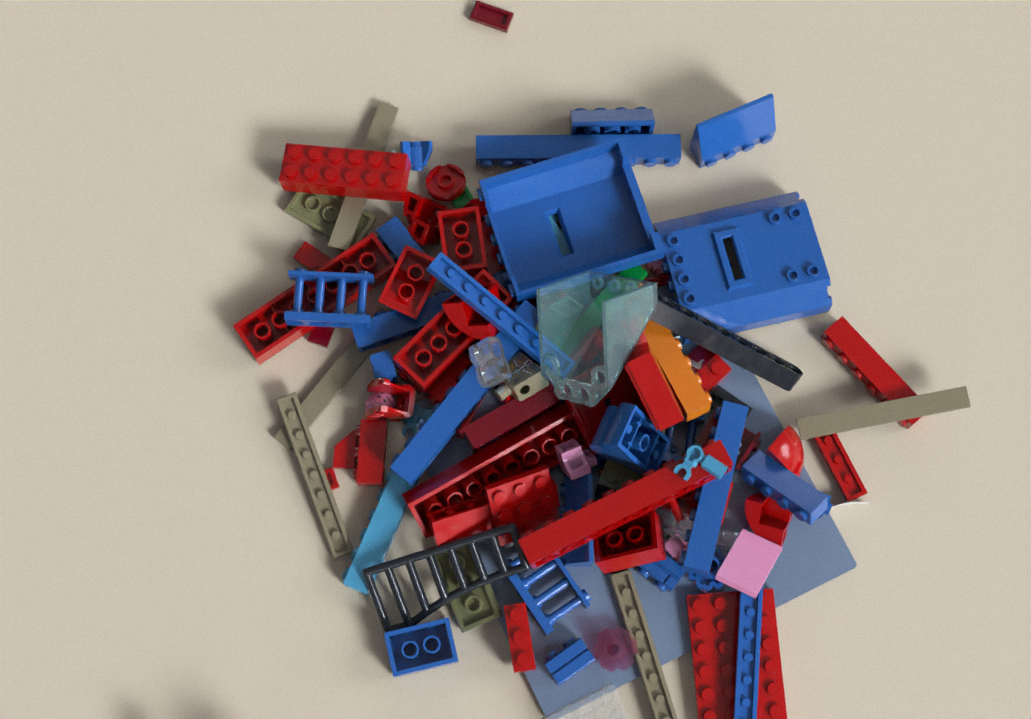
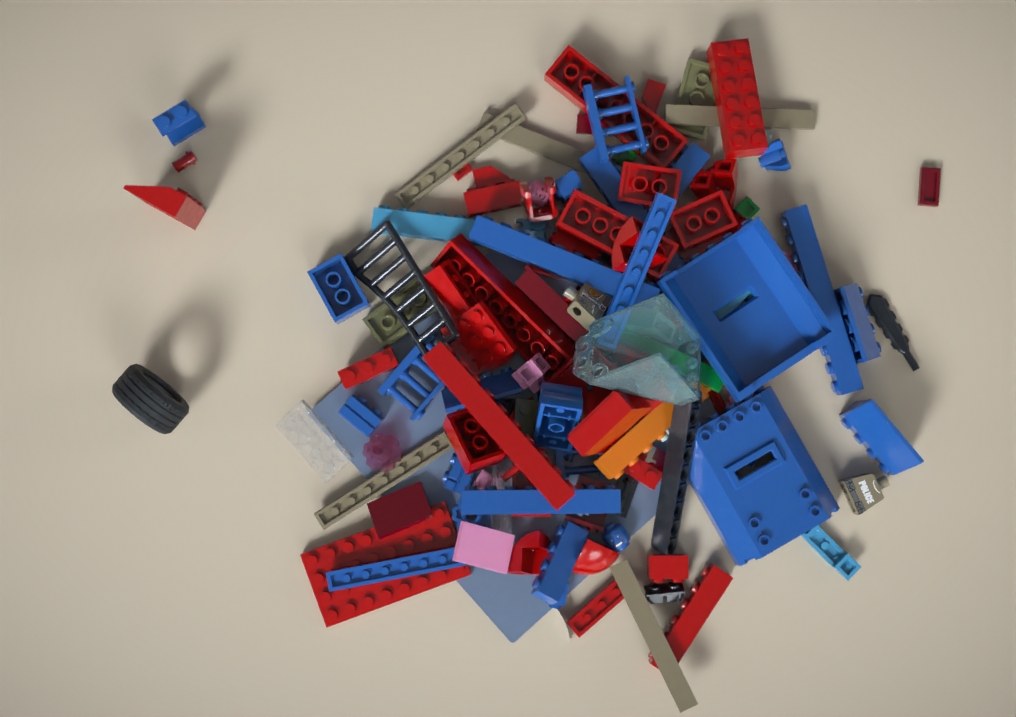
camera: 80 degrees right, 10 degrees up
(372, 304) = (626, 156): none -> green tile
(445, 182) = (756, 191): red tile -> none
(489, 362) = (592, 273): clear brick -> none
(626, 92) = (886, 319): none -> black sword
(684, 646) = (400, 510): none -> dark red tile
(696, 455) = (554, 476): dark azure bar -> none
(770, 423) = (616, 537): none -> blue head
(784, 165) = (863, 491): none -> dark tan torso
(814, 381) = (667, 567): none -> red brick
(840, 212) = (831, 552): none -> dark azure slope
(840, 382) = (672, 591): none -> black hinge

